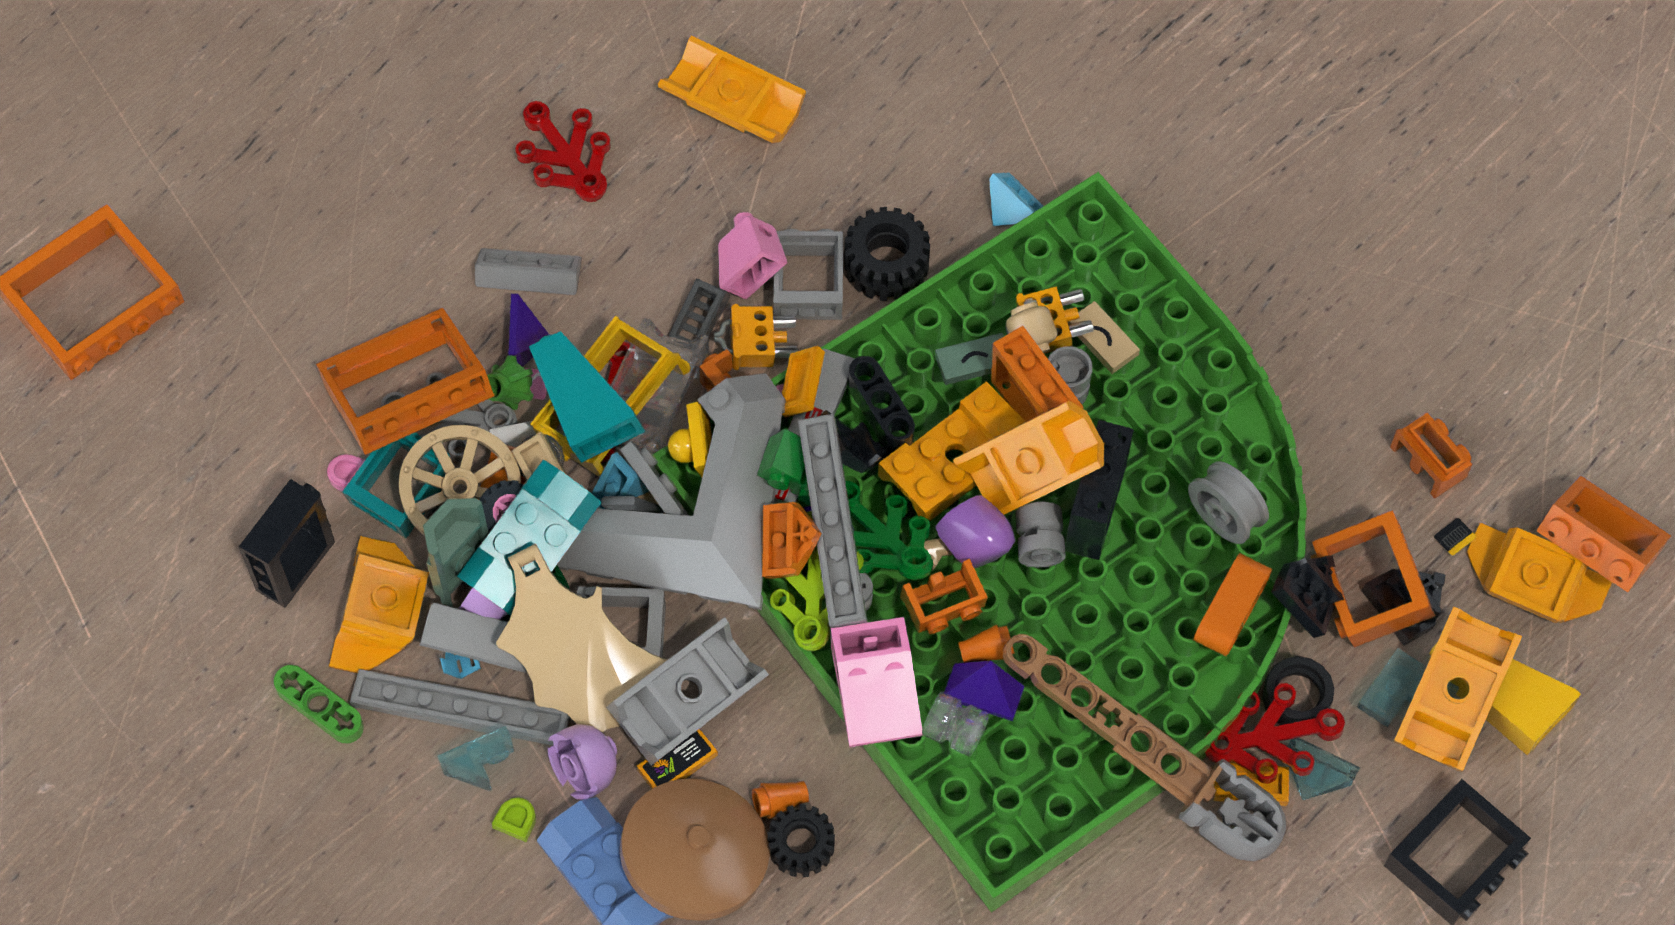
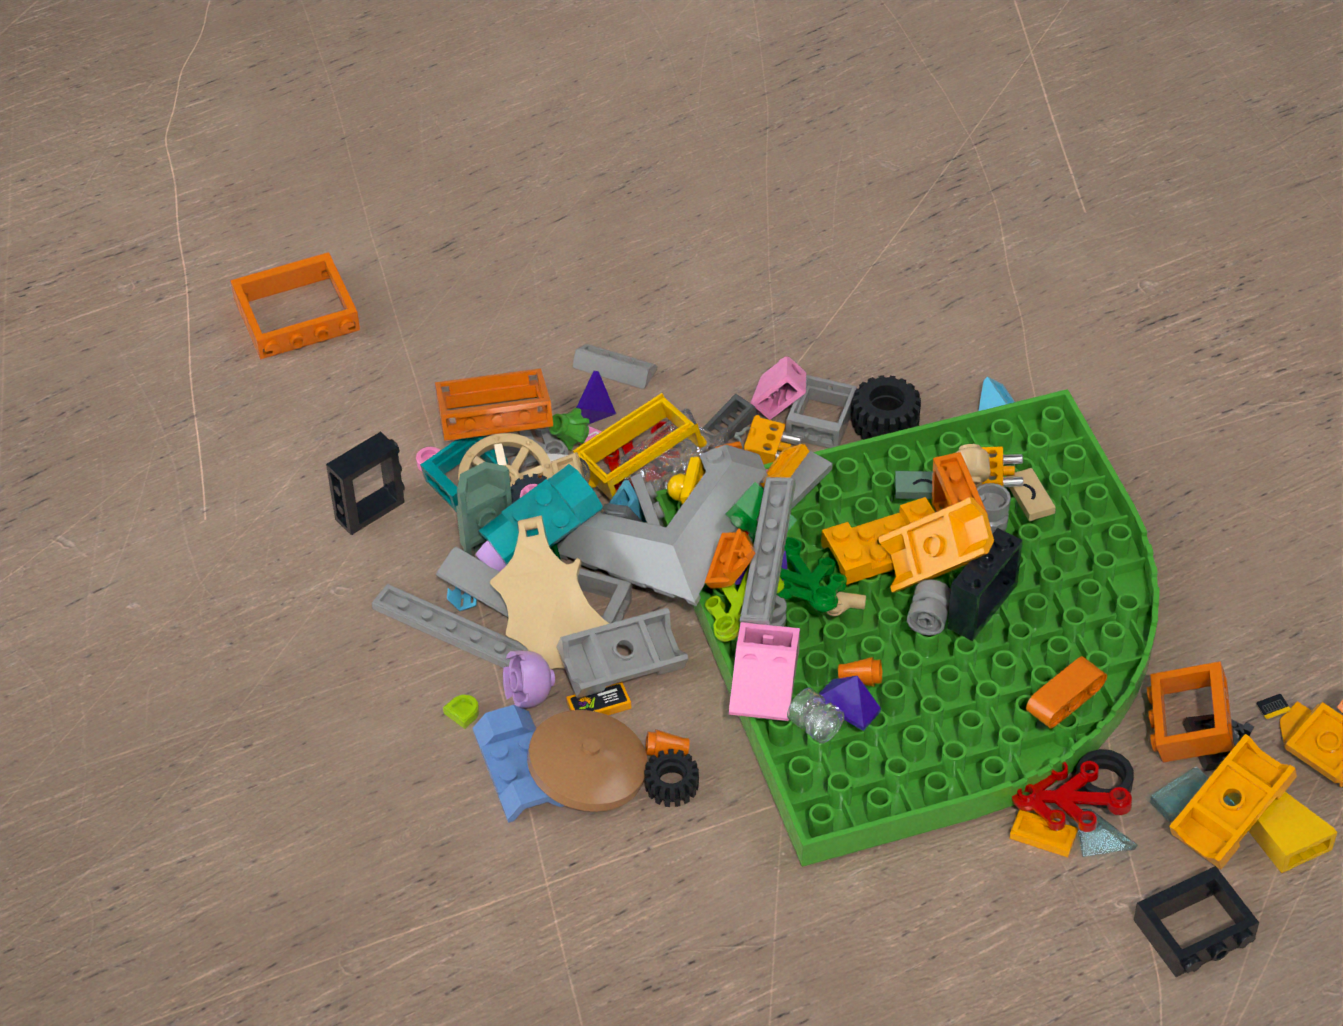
camera: 20 degrees right, 15 degrees down
(313, 689) = (349, 610): bright green beam -> none
(379, 607) = (415, 548): light orange piece -> none
(467, 760) = (443, 659): clear light blue slope -> none
(565, 154) = (679, 320): red plant -> none
(583, 400) = (615, 440): teal slope -> none
(734, 91) = (813, 286): light orange piece -> none
(858, 447) = (808, 519): black slope -> none
(877, 391) = (839, 492): black beam -> none
(941, 586) = (839, 634): orange window -> none
(976, 532) = (878, 590): medium lavender piece -> none
(1228, 502) = (1085, 617): light grey wheel -> none
(1254, 834) = (1036, 857): medium nougat piece -> none
(1308, 592) = (1133, 702): black slope -> none
(1425, 459) = (1277, 661): orange window -> none

